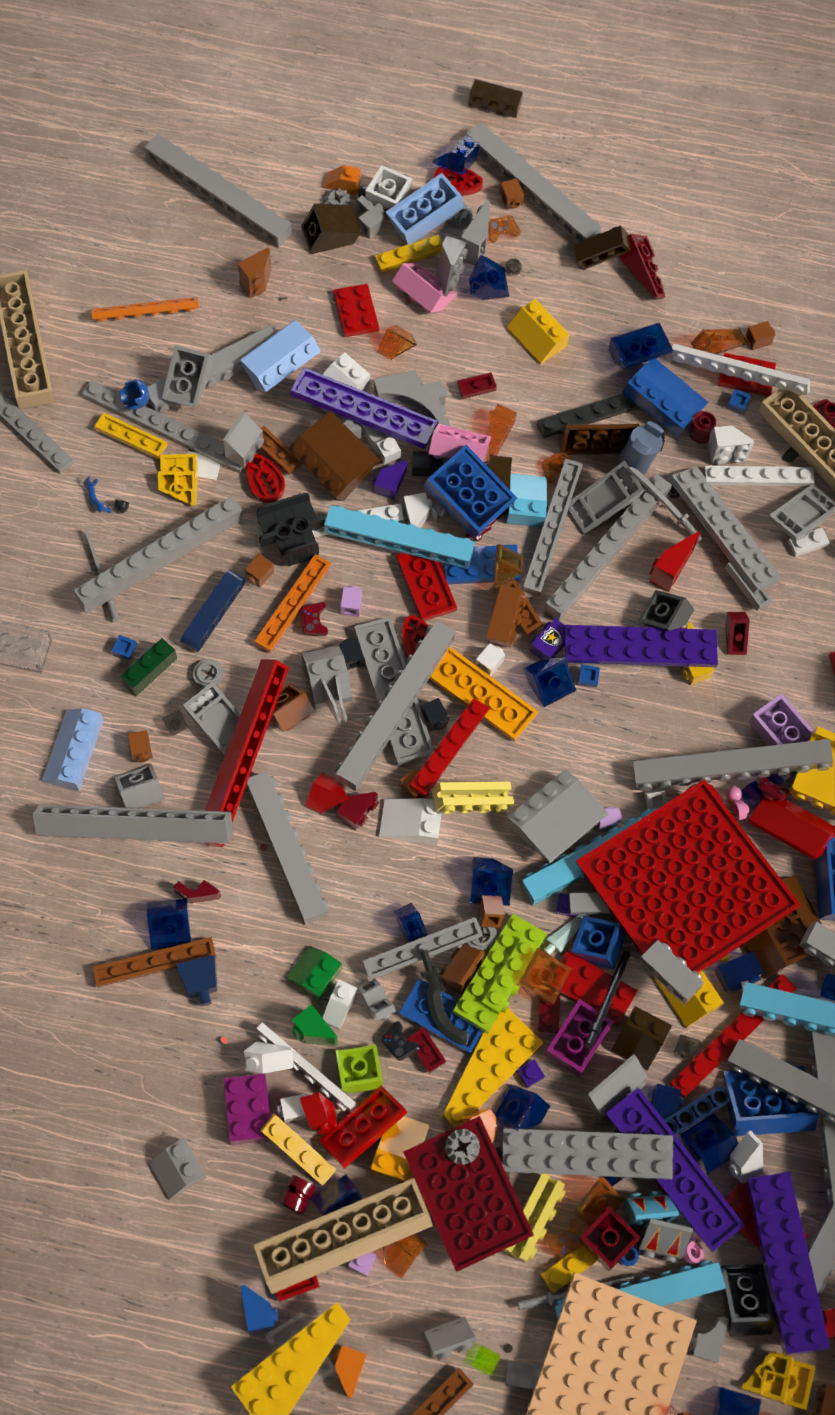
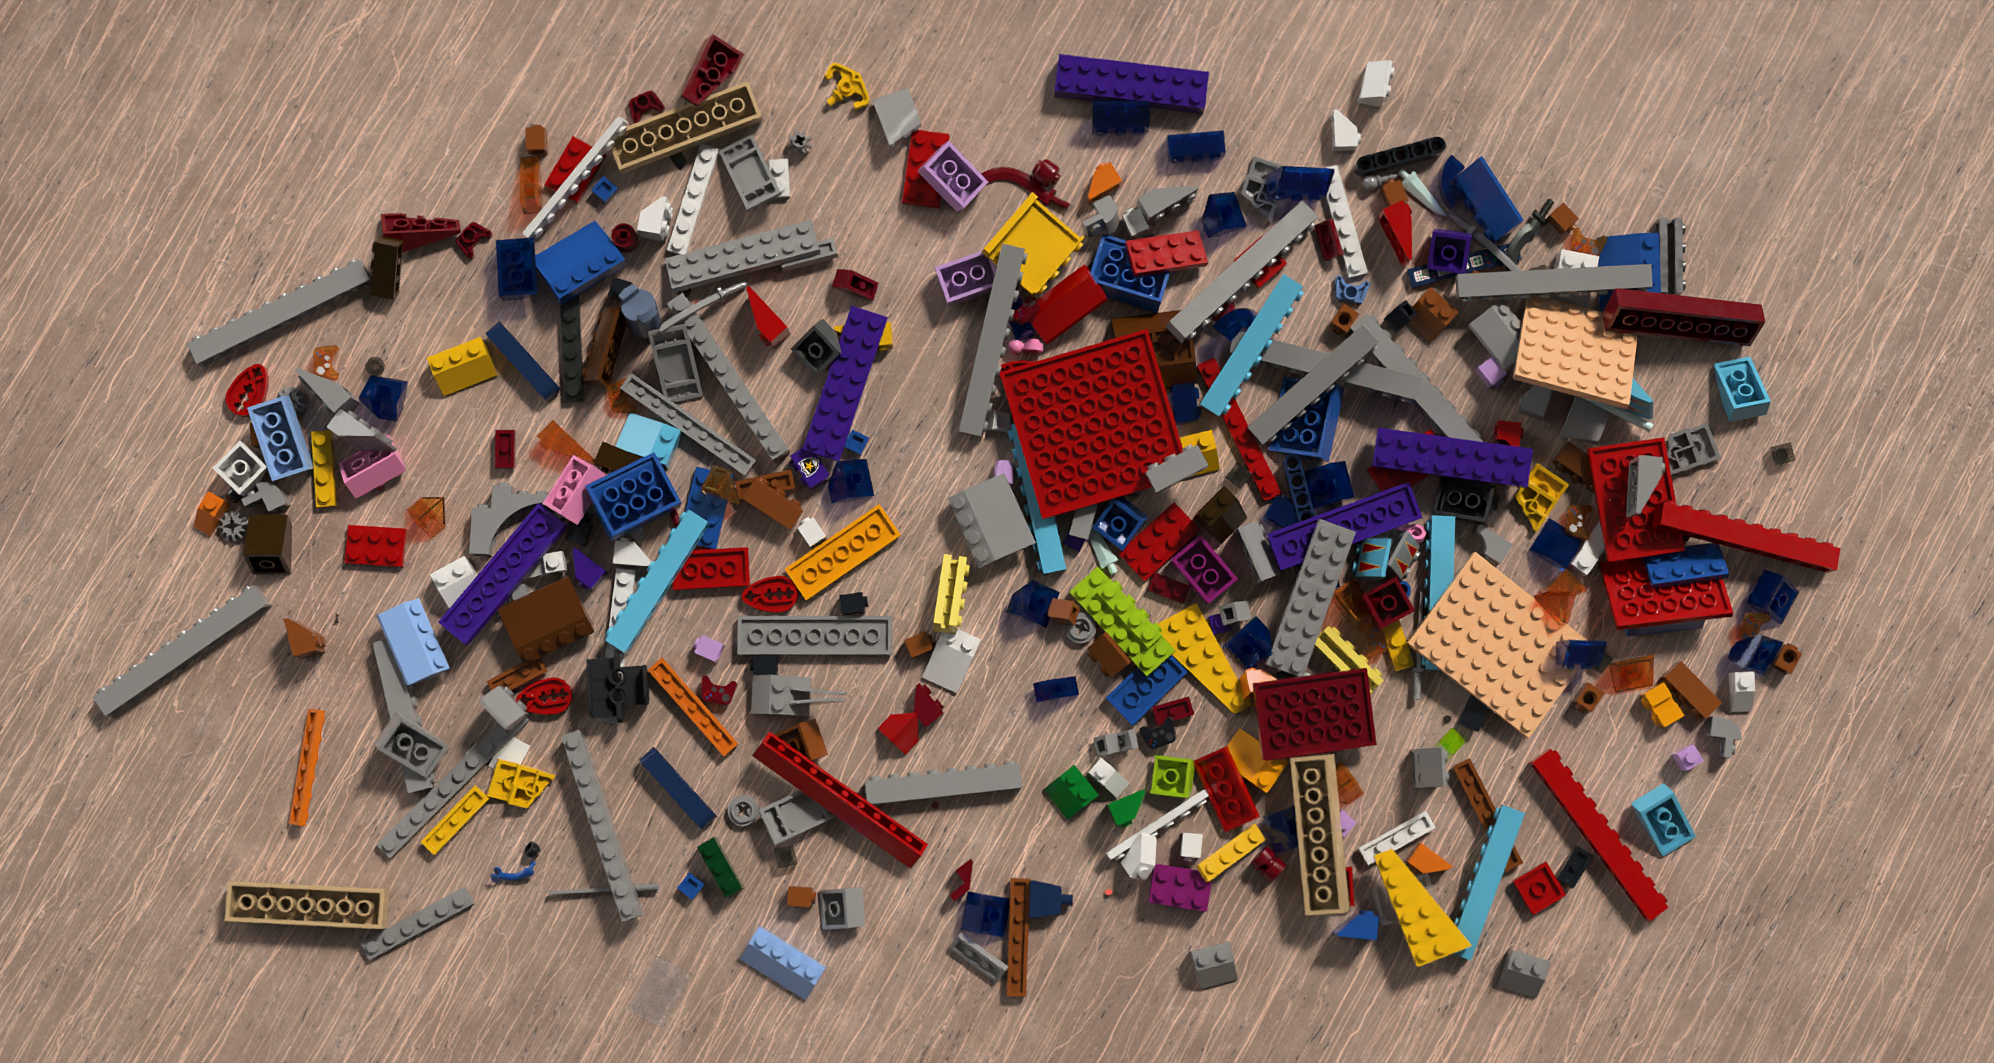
camera: 70 degrees left, 15 degrees up
(124, 928) = (978, 957): none -> light grey plate
(133, 823) = (884, 923): light grey brick -> none
(134, 394) = (415, 805): blue hair -> none
(259, 570) = (648, 731): dark orange brick -> none
(319, 1112) = (1205, 824): red slope -> none
(367, 1329) = (1397, 836): none -> white plate
(395, 705) = (835, 638): light grey brick -> none
(434, 943) = (1080, 686): light grey plate -> none
(435, 1003) = (1134, 689): pearl dark grey sword -> none
(449, 747) = (893, 600): red plate -> none
(458, 155) = (219, 381): clear blue slope -> none
(472, 1149) = (1269, 702): light grey gear -> none
(495, 98) = (157, 316): dark brown brick -> none
(511, 194) = (285, 338): dark orange brick -> none
(544, 977) = (1140, 582): clear orange slope -> none
(546, 1083) = (1235, 613): none -> light grey brick
(560, 378) = (522, 361): none -> dark blue beam
(596, 1027) = (1205, 554): black bar -> none
(654, 309) = (470, 237): none -> dark red piece
(747, 1158) = (1353, 459): white slope -> none

